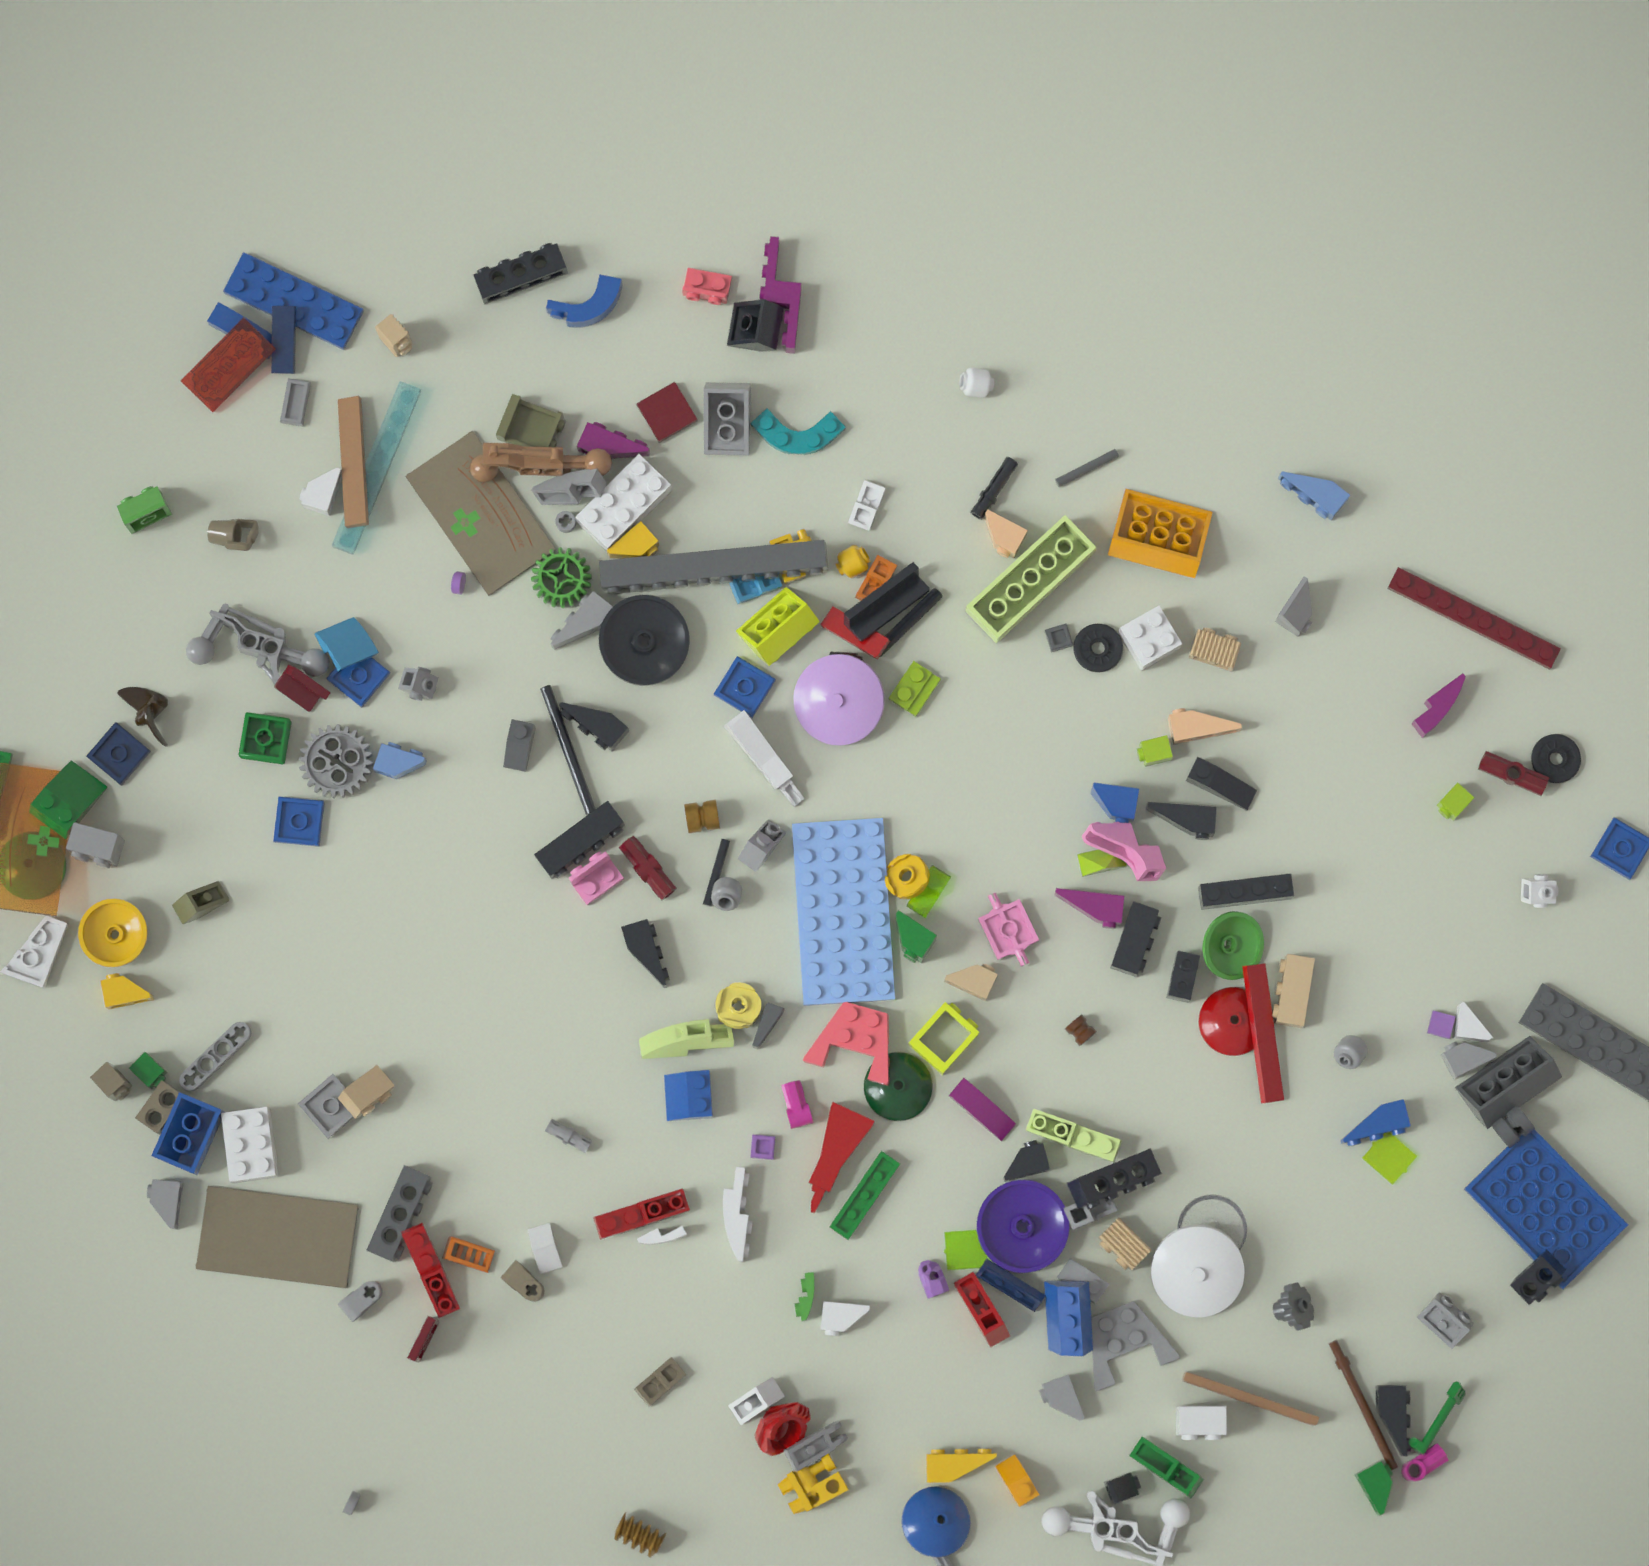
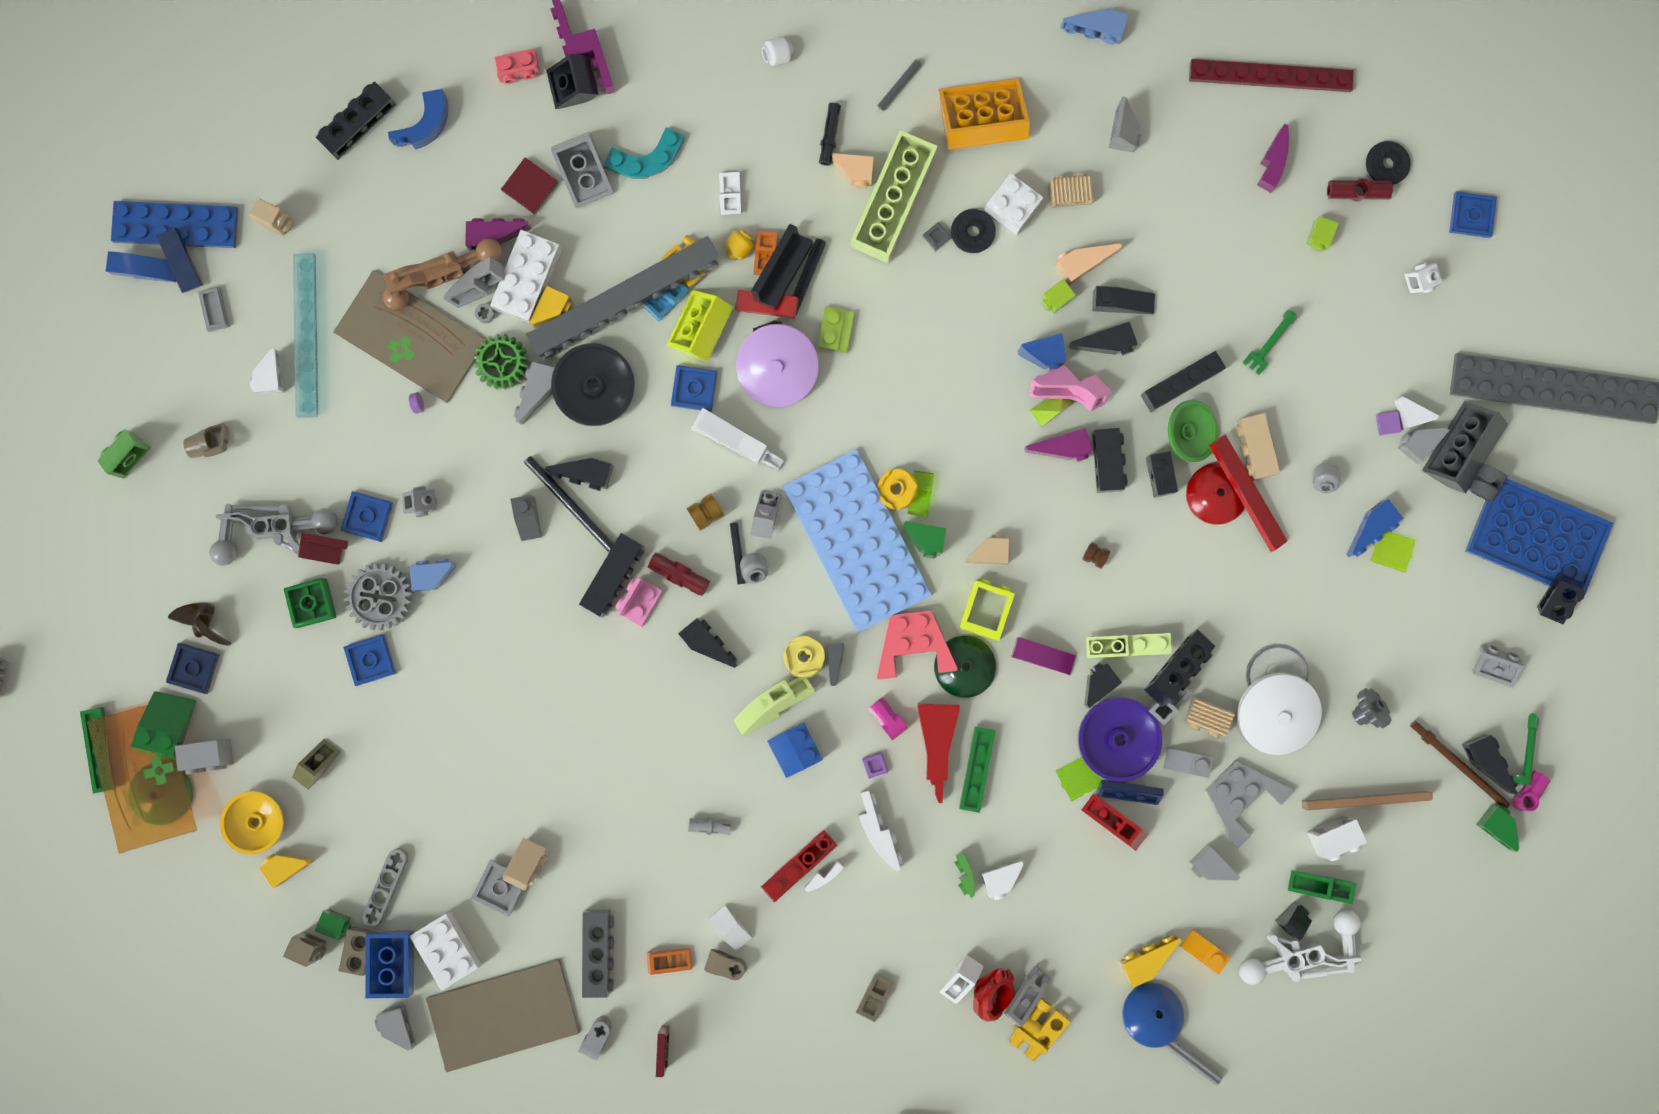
camera: 25 degrees left, 5 degrees up
(37, 955) = (198, 865): white wing -> none
(228, 364) = (140, 300): clear red tile -> none
(346, 643) = (343, 494): dark azure slope -> none
(353, 462) = (283, 338): medium nougat tile -> none
(430, 1270) = (644, 989): red slope -> none
(529, 424) = (418, 243): olive panel -> none
(932, 1279) = (1063, 815): medium lavender rock -> none
(1008, 929) = (1000, 497): bright pink plate -> none
(1068, 1317) = (1191, 800): blue slope -> none
(1384, 873) = (1289, 317): none -> green hinge

